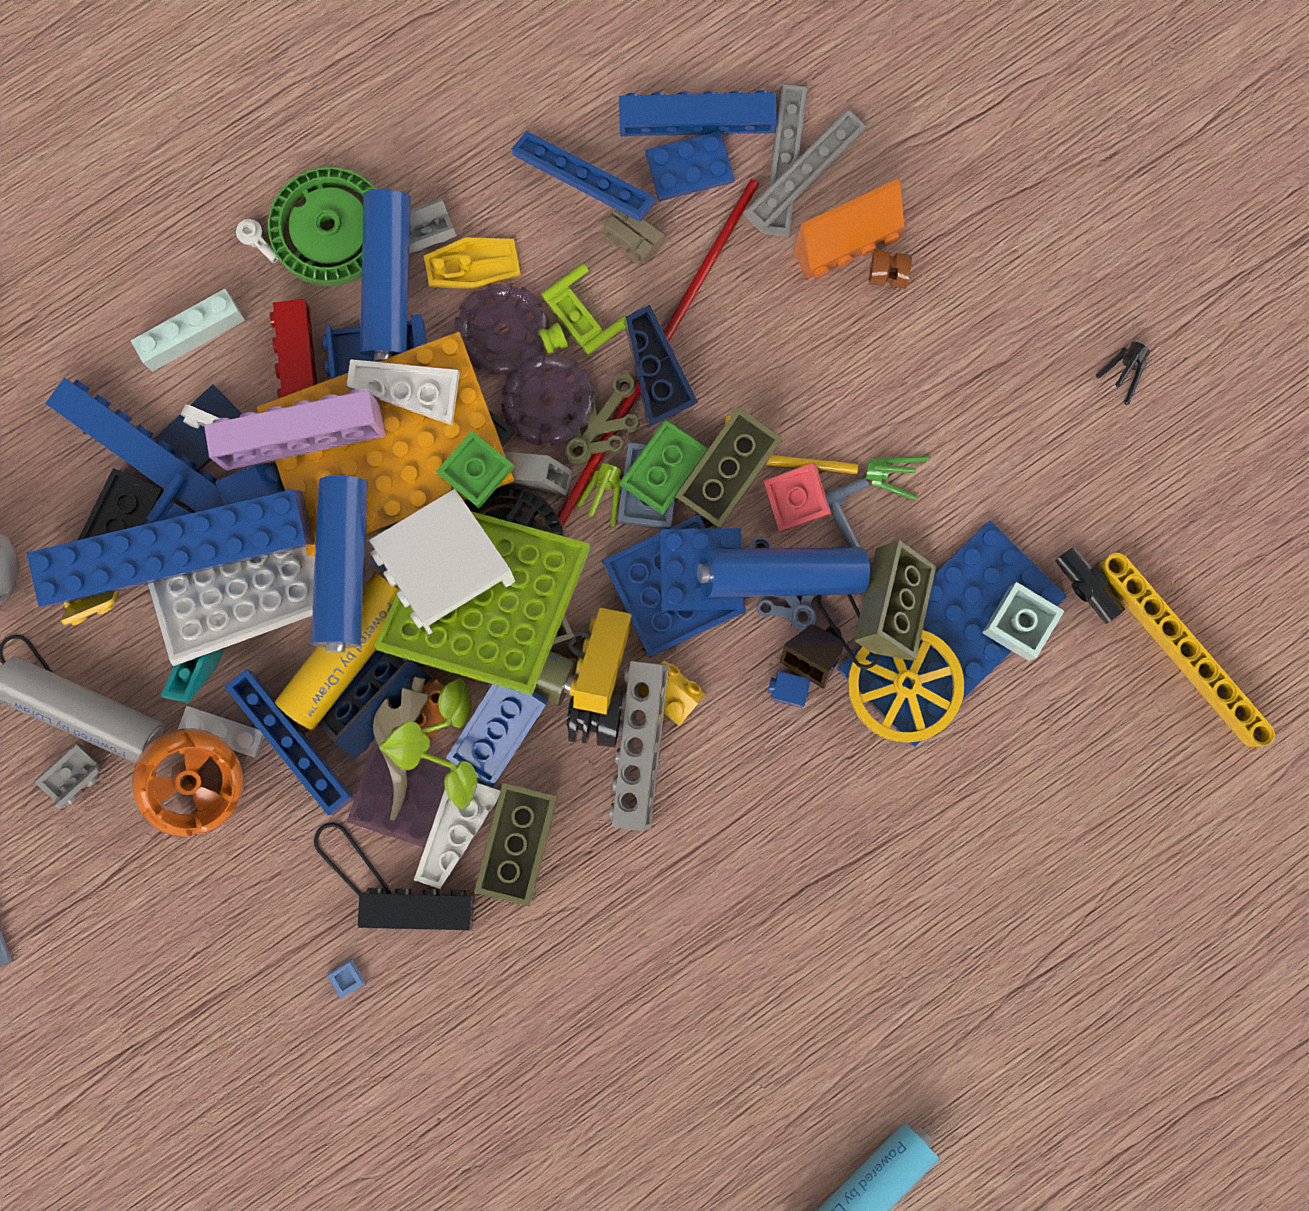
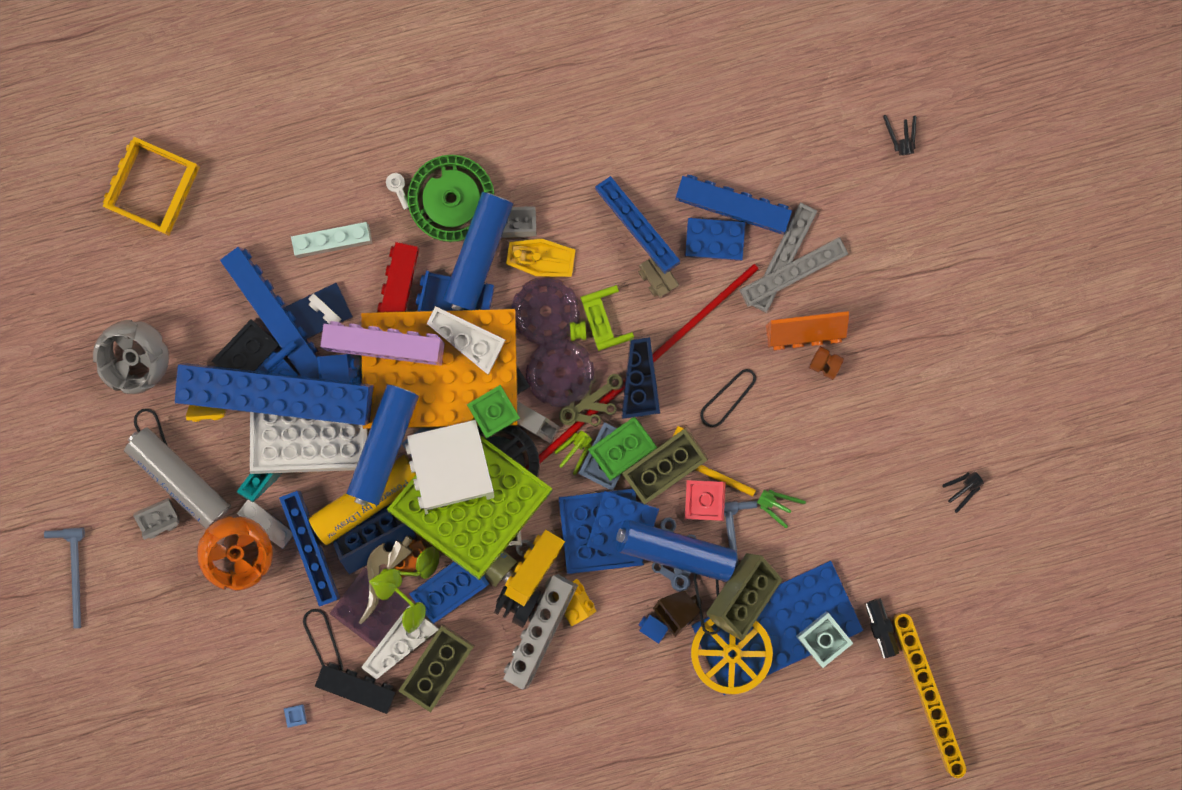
camera: 20 degrees right, 5 degrees up
(790, 365) = (736, 403): none -> black piece

